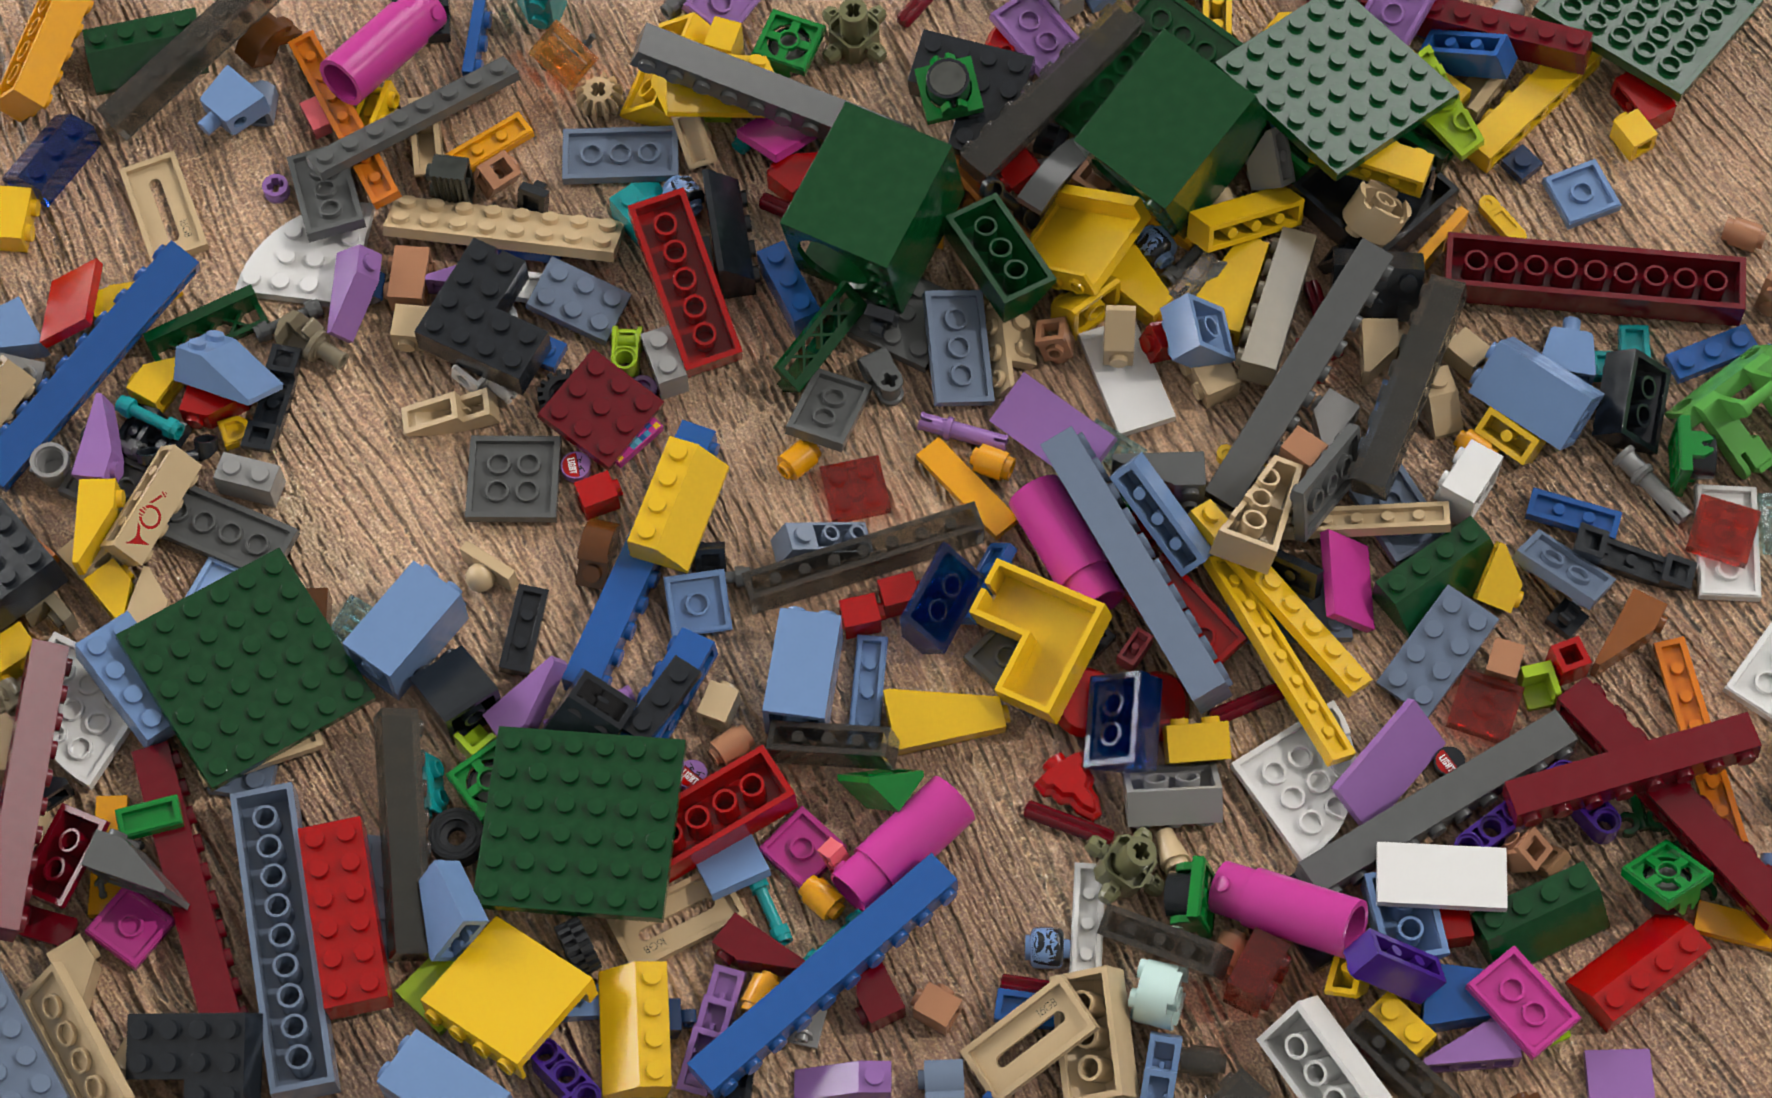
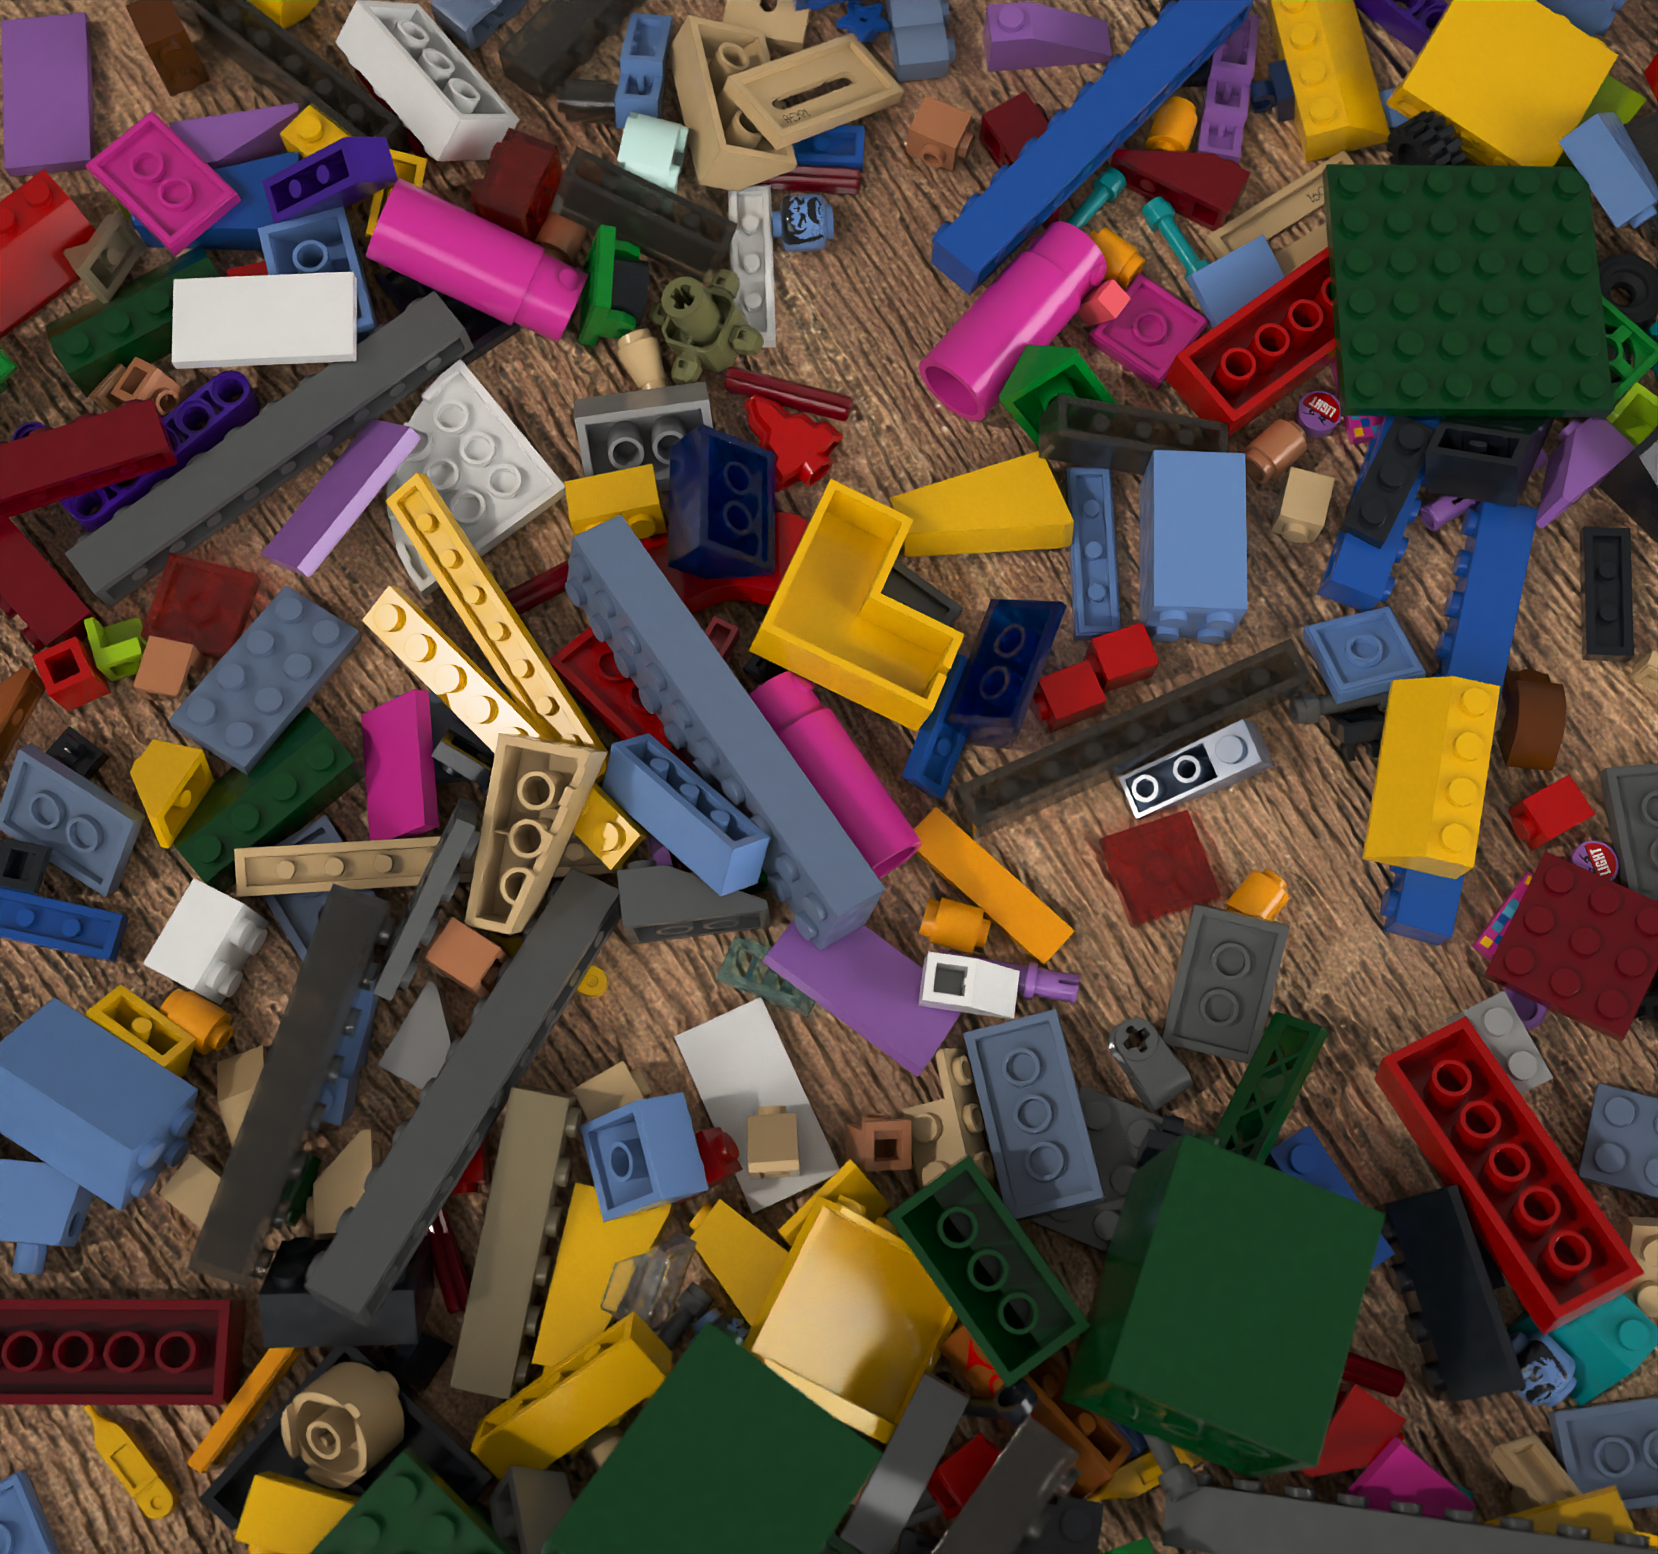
camera: 170 degrees right, 10 degrees up
(627, 348) = (1568, 1069): lime piece -> none
(992, 414) = (968, 985): none -> white slope
(1447, 760) = (256, 526): tile -> none
(1567, 948) = (106, 256): none -> dark tan slope

